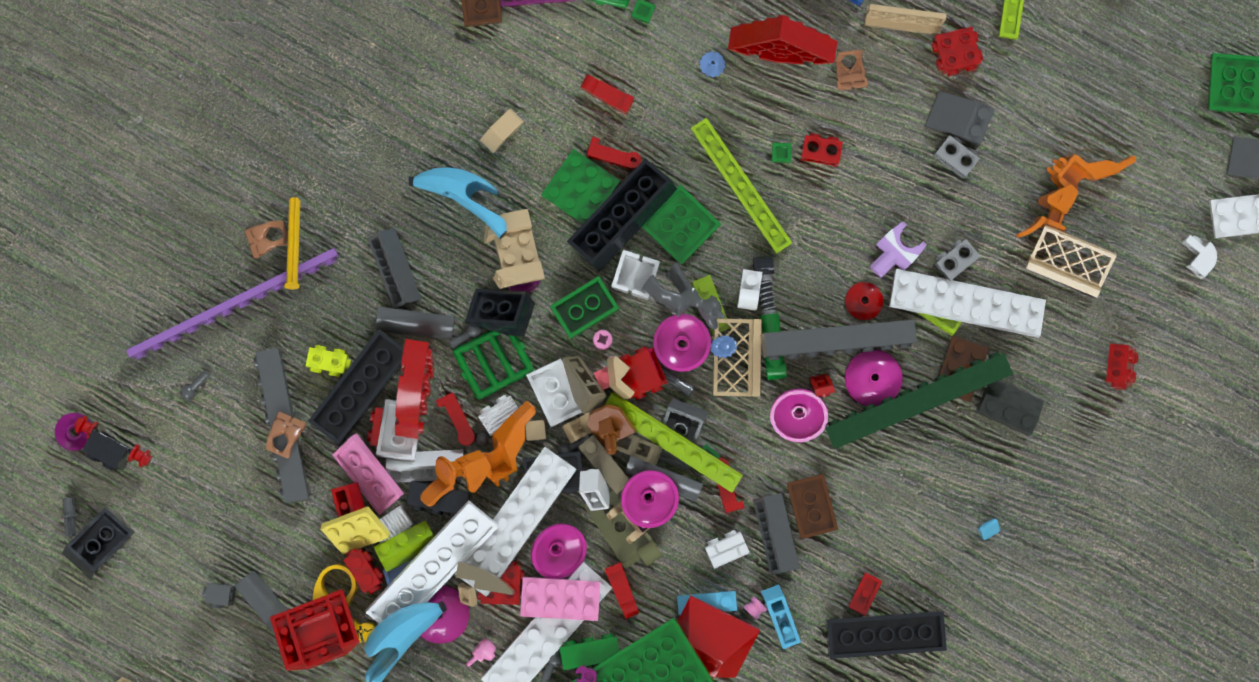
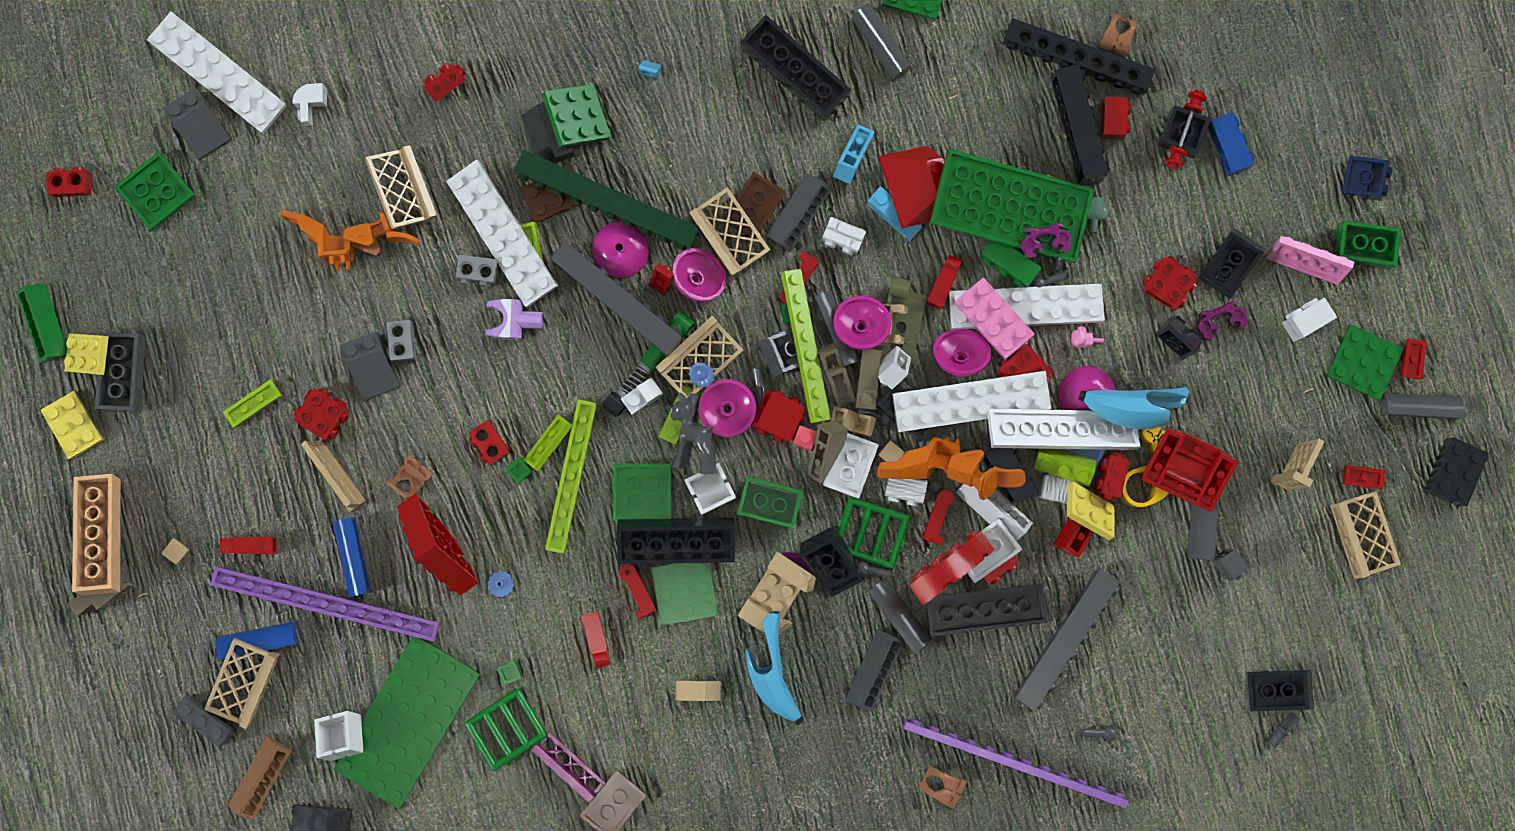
camera: 130 degrees left, 0 degrees up
(63, 436) = (1212, 780): magenta dish -> none
(107, 449) = (1208, 748): black brick -> none
(285, 425) = (1065, 630): nougat piece -> none
(293, 244) = (930, 761): yellow axle -> none
(334, 362) = (985, 647): neon yellow brick -> none
(369, 473) = (1040, 537): bright pink plate -> none
(467, 594) = (1056, 387): tan tile -> none
(483, 579) = (1035, 382): dark tan slope -> none
(604, 342) = (781, 468): bright pink wheel -> none
(609, 426) = (838, 401): dark orange piece -> none
(616, 371) = (794, 432): tan slope -> none
(755, 608) = (865, 177): bright pink wheel -> none
(781, 192) = (548, 442): none -> lime plate
(812, 452) = (719, 244): none -> tan fence
(857, 308) = (577, 316): red dish -> none
(865, 593) = (780, 110): red plate -> none
(1003, 439) = (576, 115): none -> green plate

